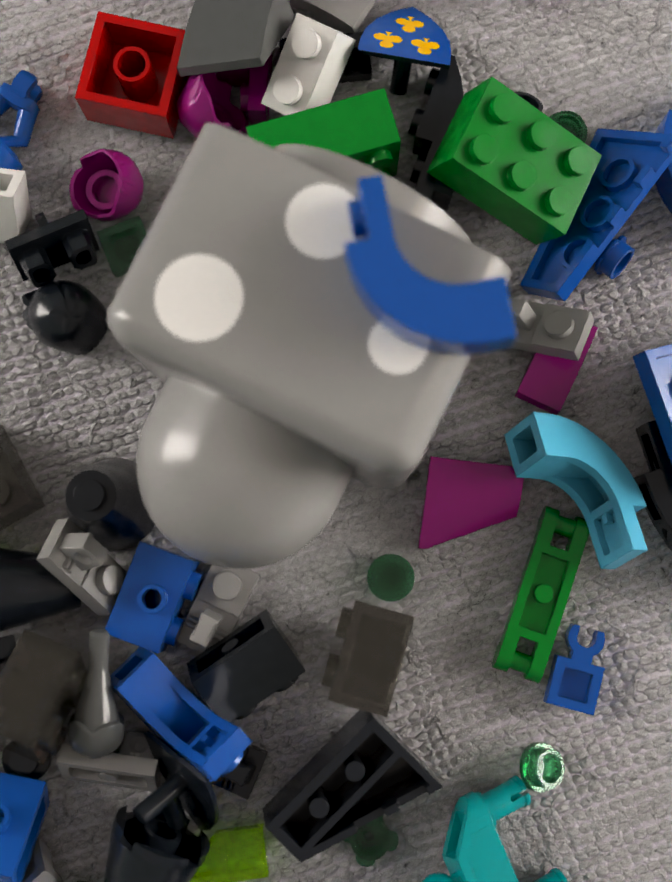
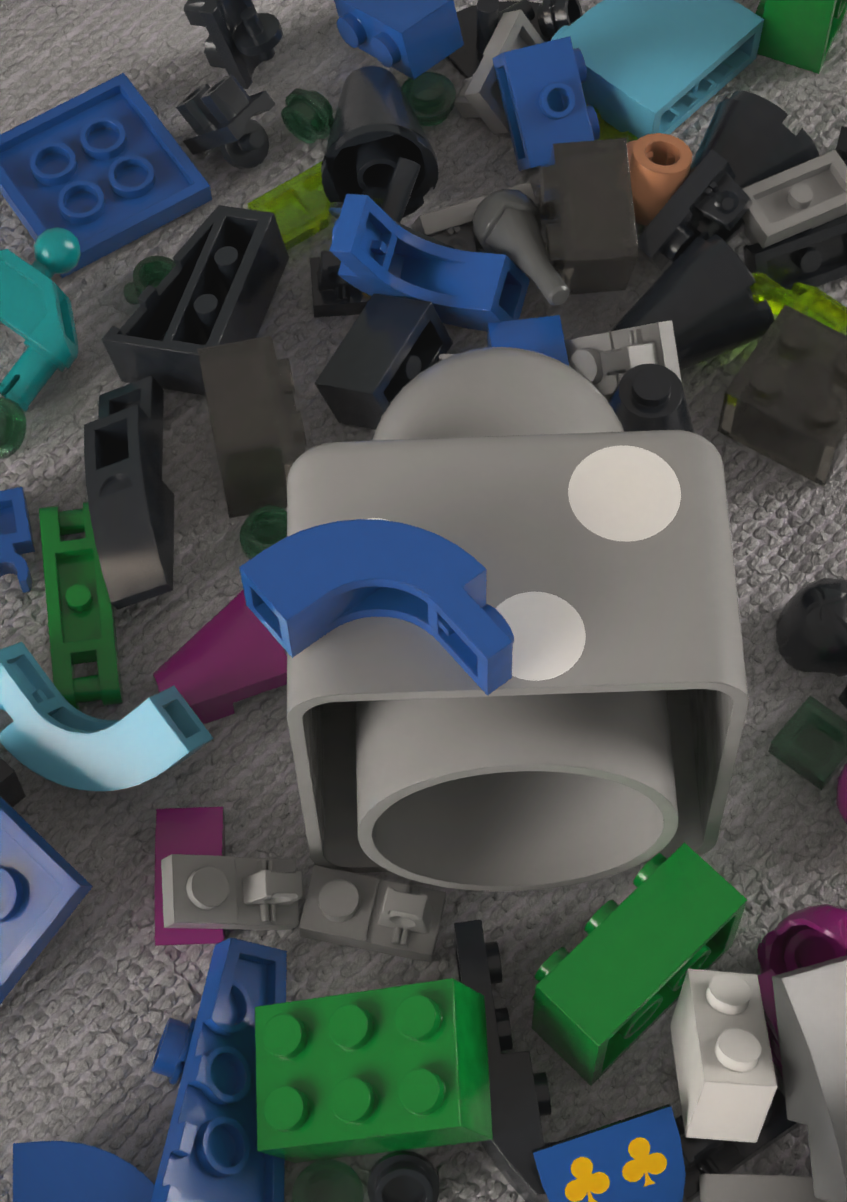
camera: 150 degrees right, 20 degrees down
(477, 659) = (127, 495): none -> black slope

